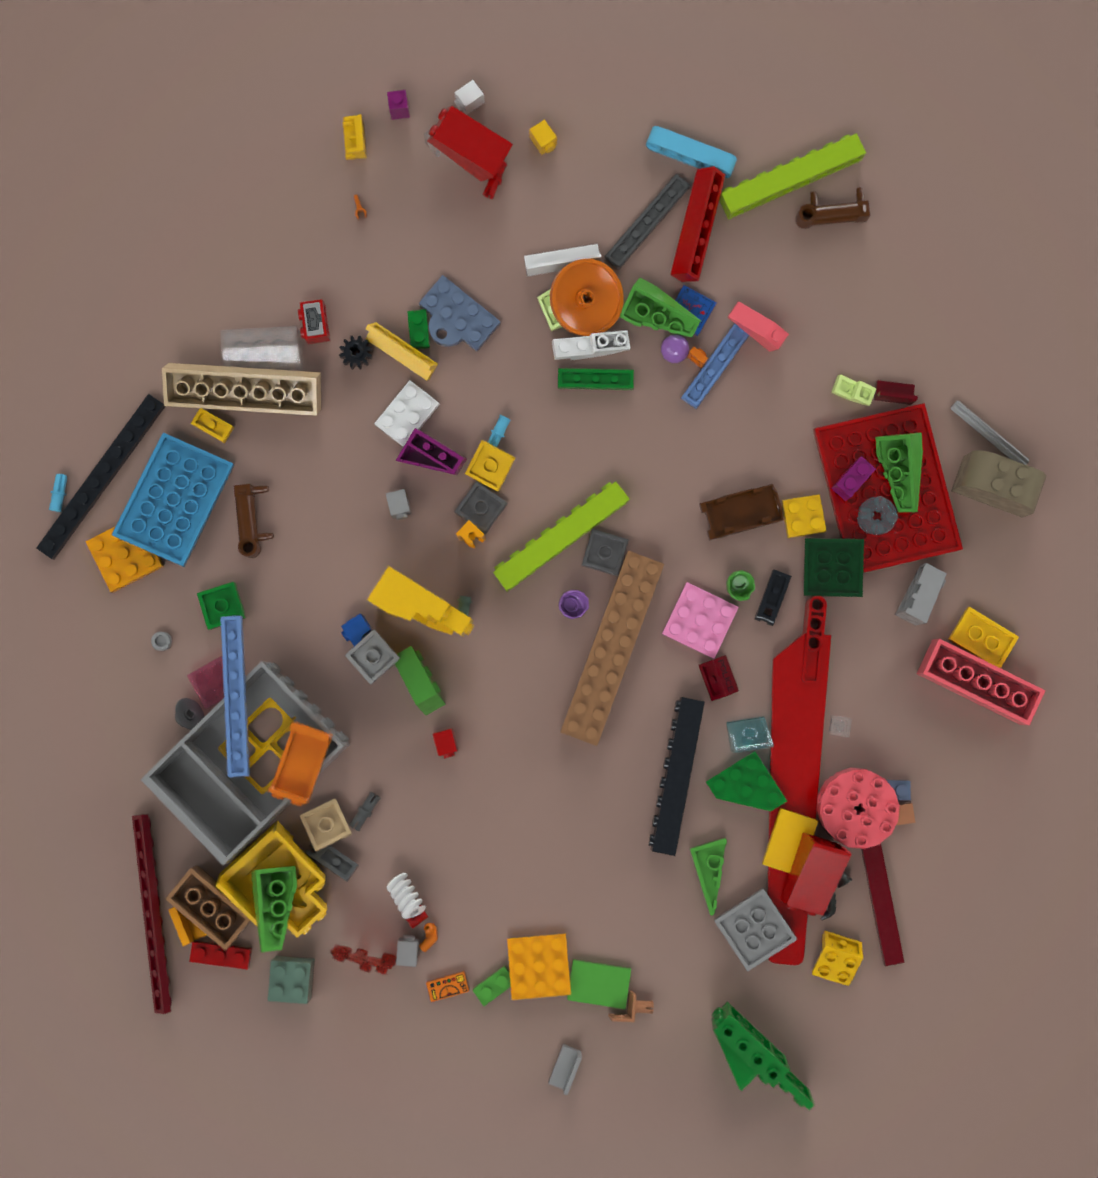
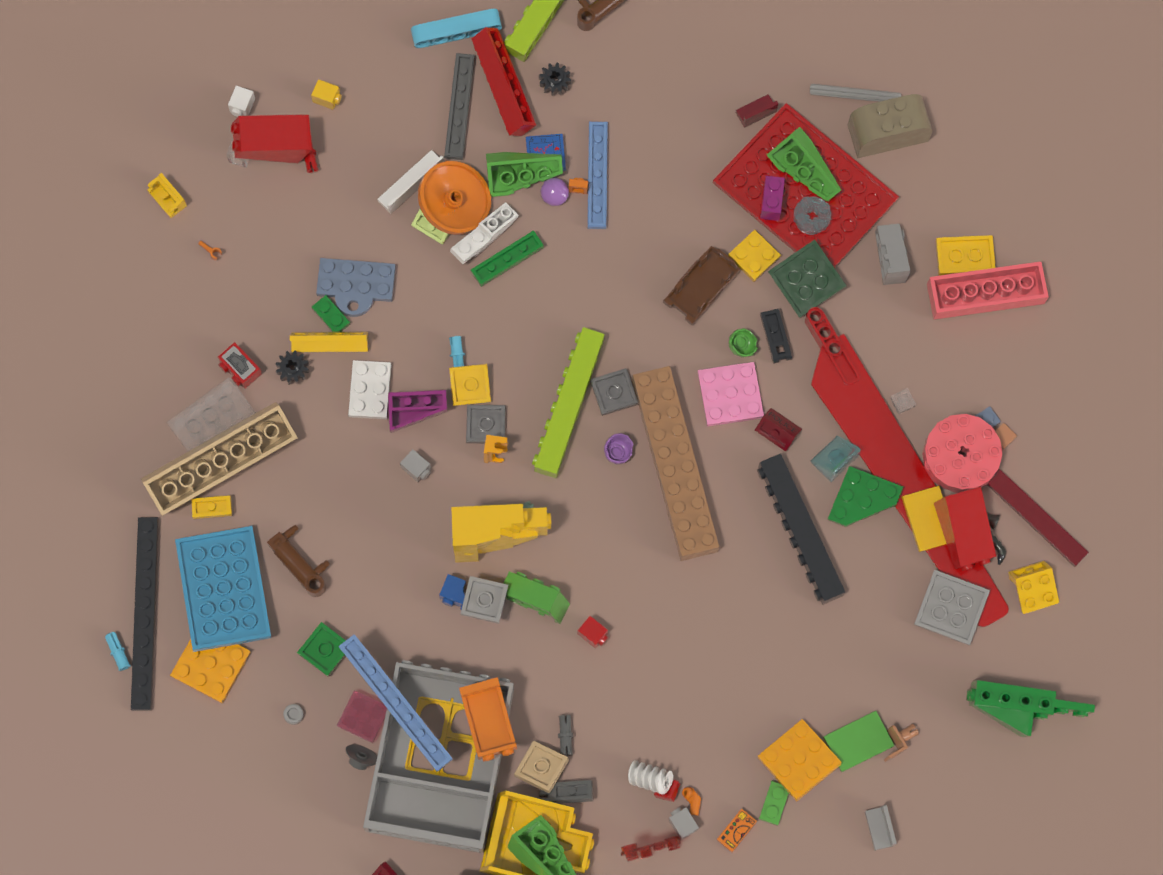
camera: 35 degrees left, 10 degrees down
(398, 104) = (186, 145): magenta brick -> none
(708, 863) = (877, 583): bright green wing -> none
(743, 258) = (549, 83): none -> black gear
(758, 327) = (611, 130): coral slope -> none
(853, 391) = (723, 130): yellowish green slope -> none

